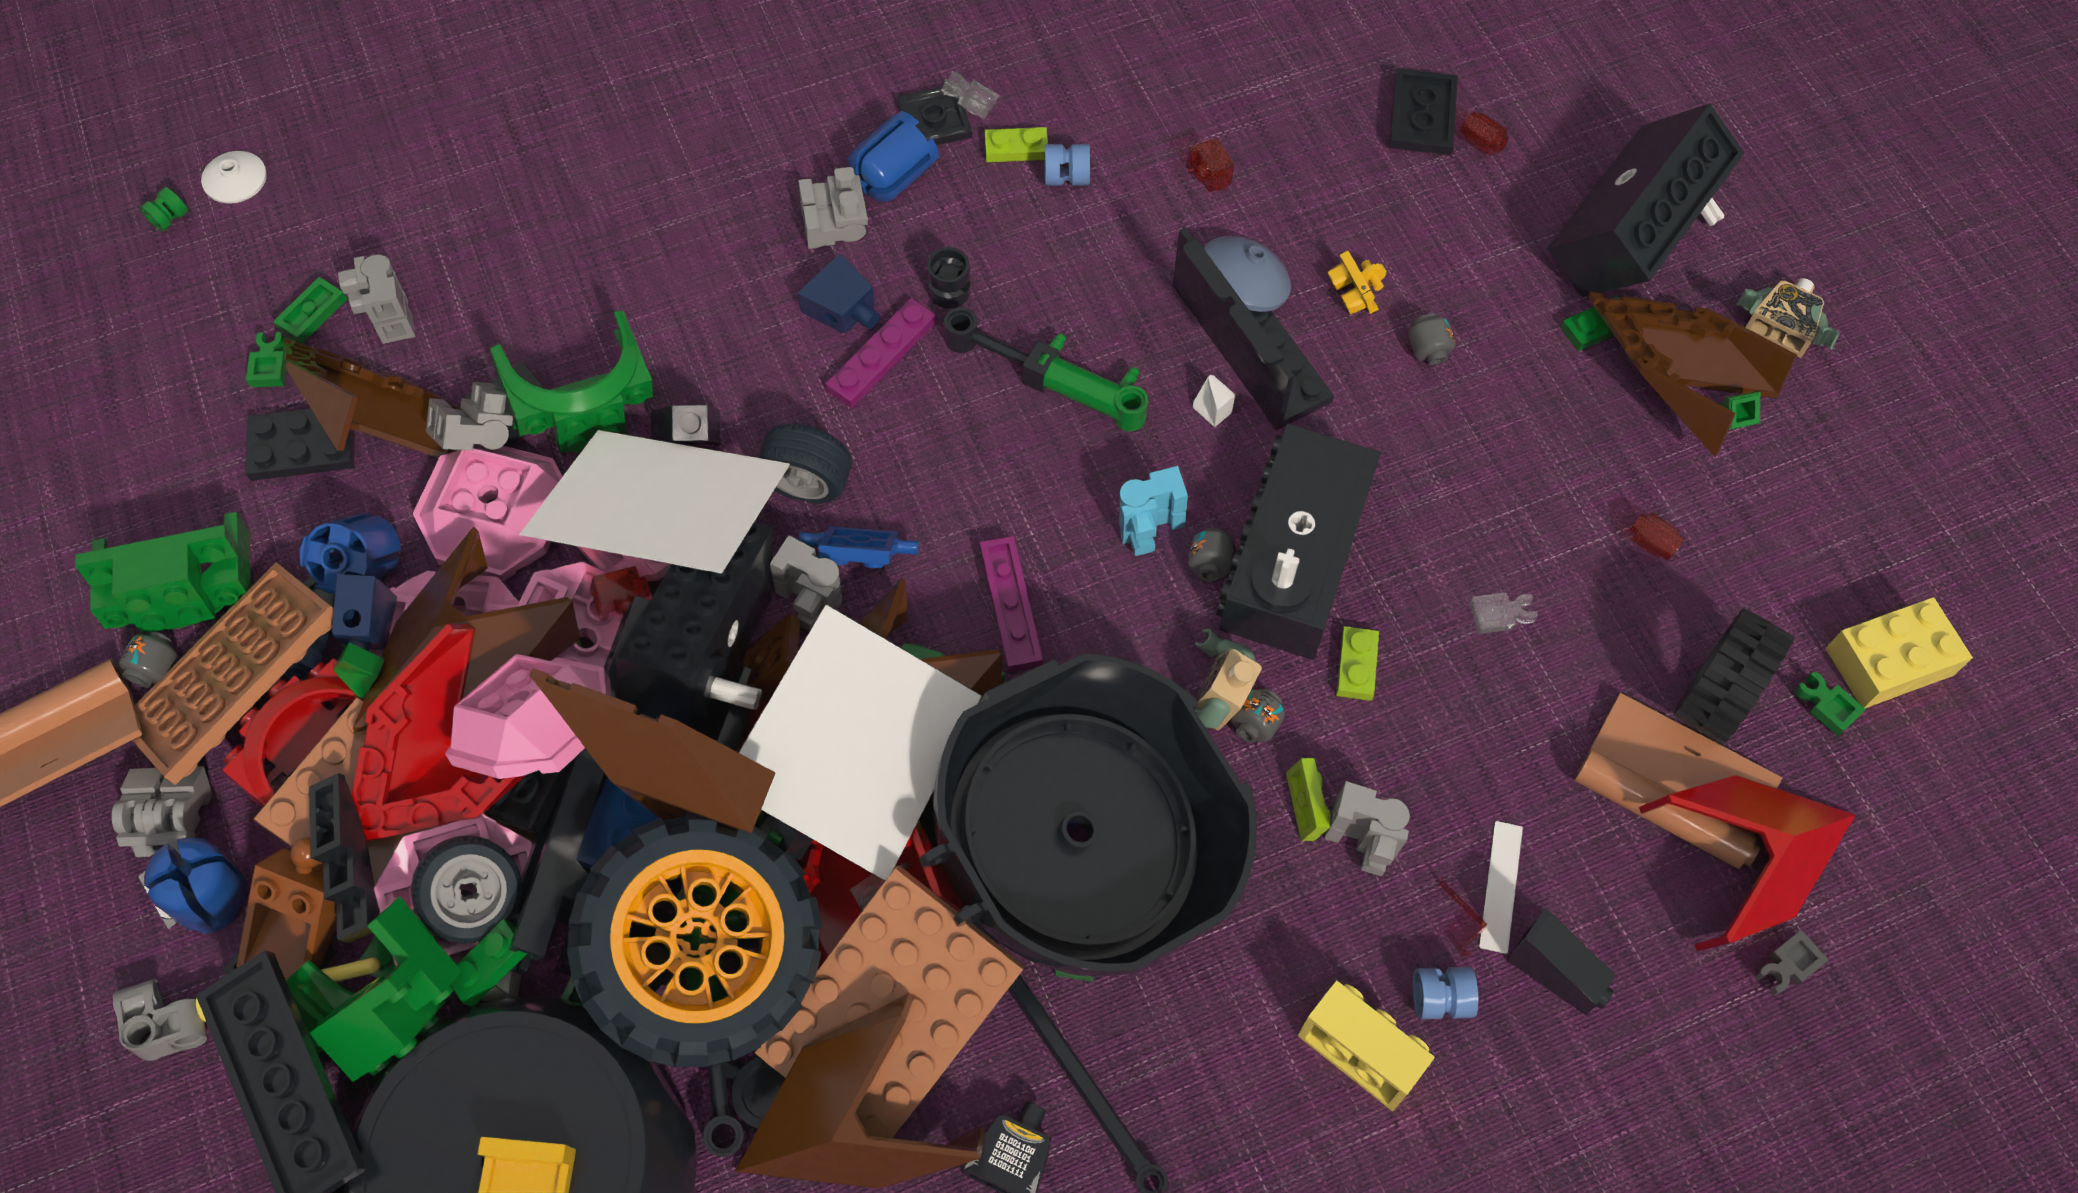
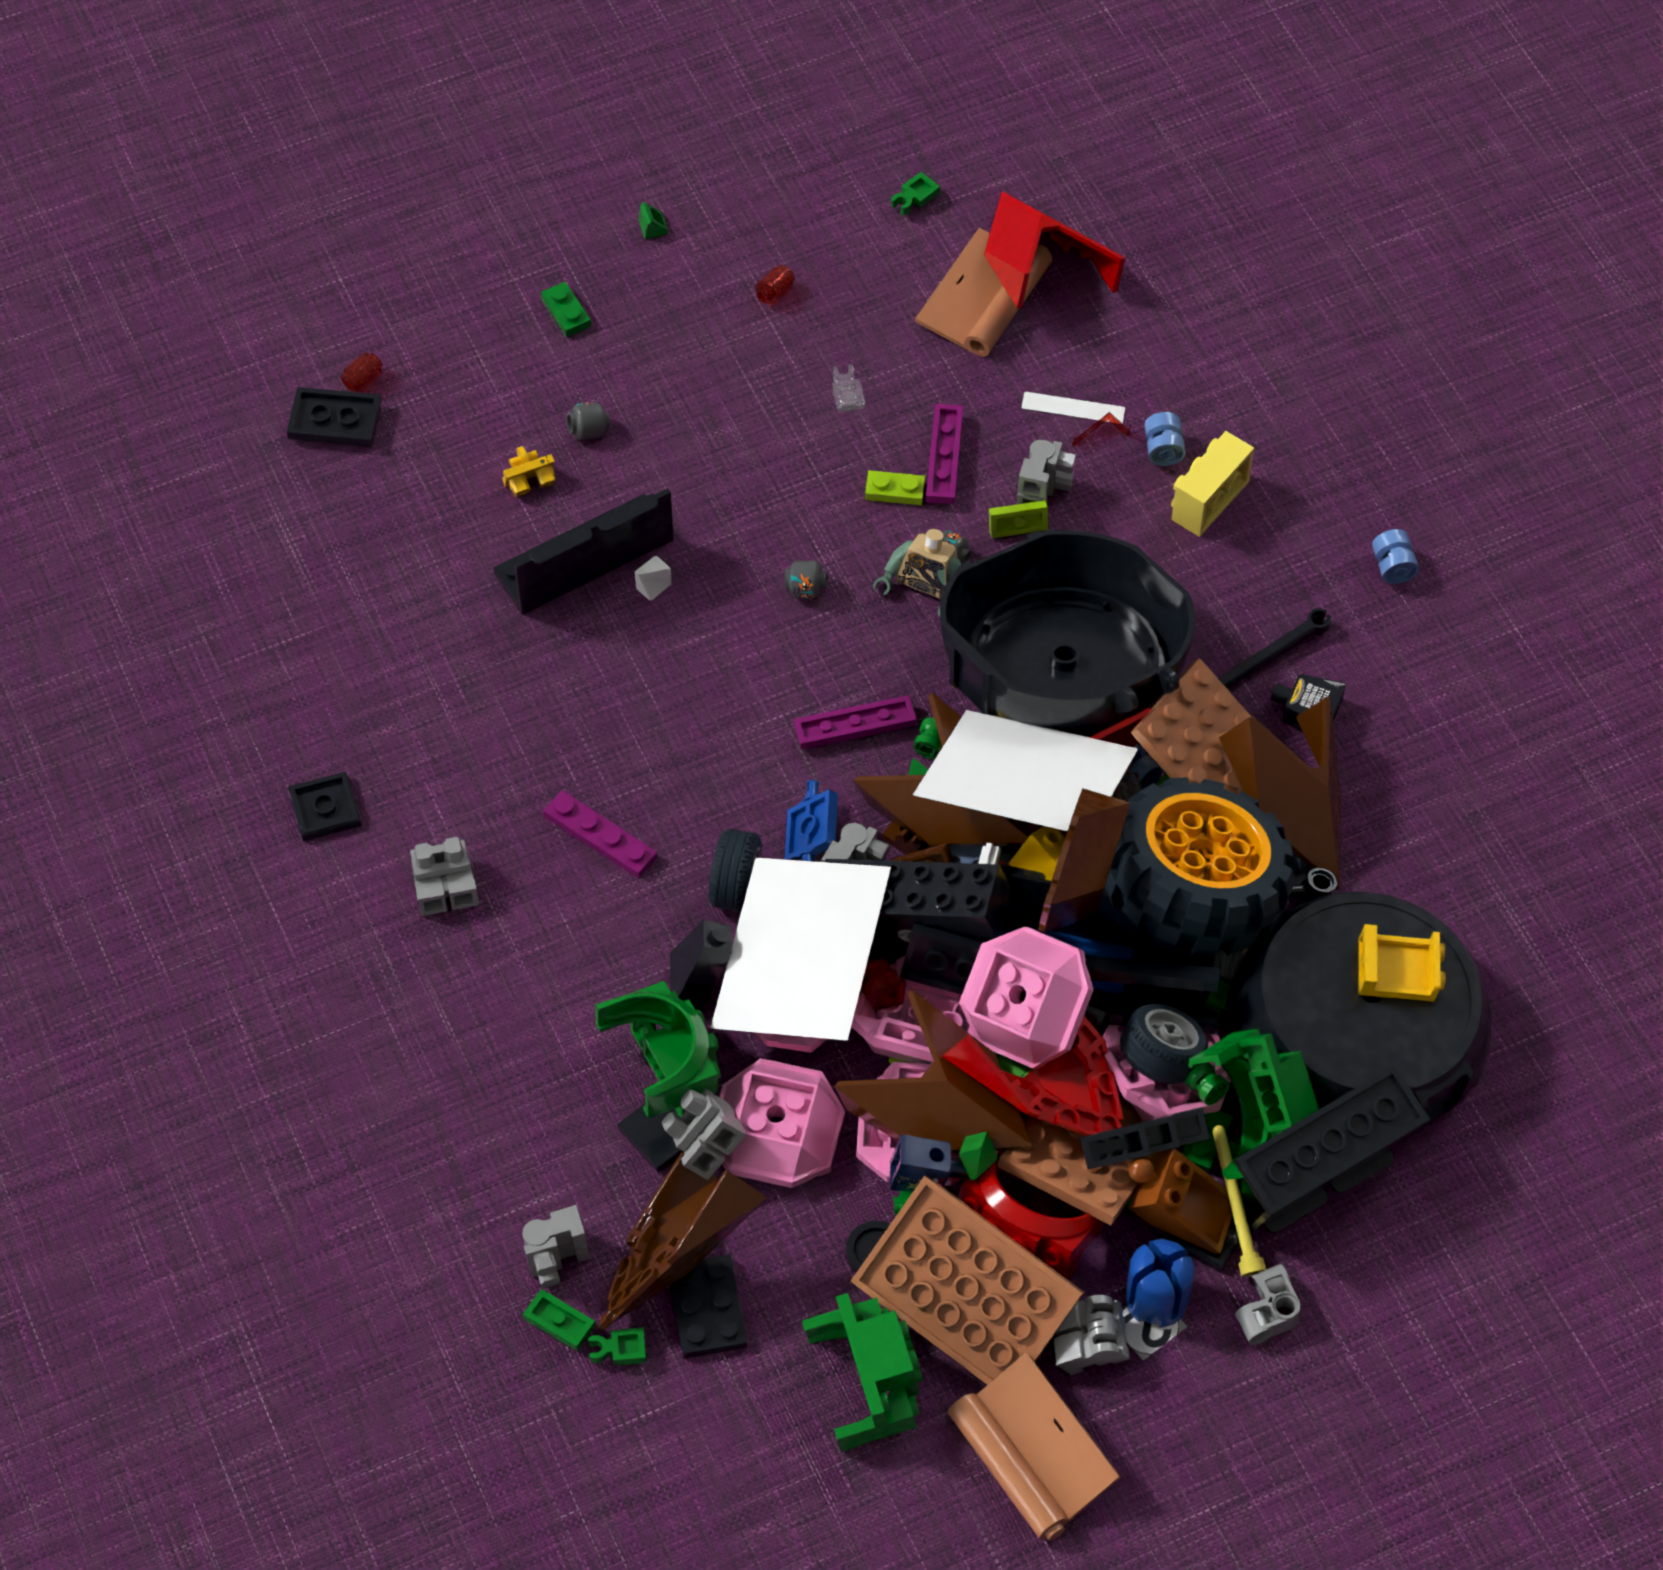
camera: 90 degrees left, 5 degrees down
(147, 659) = (947, 1379): dark grey head -> none
(163, 209) = (434, 1480): green wheel -> none
(234, 177) = (387, 1446): white dish -> none
(350, 547) = (840, 1216): blue cylinder -> none
(486, 964) = (1214, 1018): green plate -> none
(839, 297) = (544, 865): dark blue torso -> none
(892, 157) = (389, 804): blue cylinder -> none
(948, 277) = (526, 776): black wheel -> none
(973, 95) = (307, 767): clear plate -> none
(1015, 144) = (361, 736): lime plate -> none
(1047, 370) = (622, 700): piece -> none
(1078, 164) = (395, 688): medium blue wheel -> none
(1151, 504) = (769, 617): medium azure hips -> none
(1211, 164) = (396, 576): clear red brick -> none
(1251, 271) = (512, 545): sand blue dish -> none
(1296, 541) = (796, 512): black piece -> none
(1409, 719) = (944, 454): none -> magenta plate
(1563, 964) = (1136, 369): black slope -> none
(1647, 201) = (464, 251): black piece -> none
(1695, 350) = (598, 240): reddish brown windscreen -> none
(1734, 676) = (913, 236): black tyre -> none
(1789, 316) = (566, 176): torso -> none
(1793, 961) = (1120, 235): dark grey plate -> none
(1898, 652) = (873, 146): light yellow brick -> none

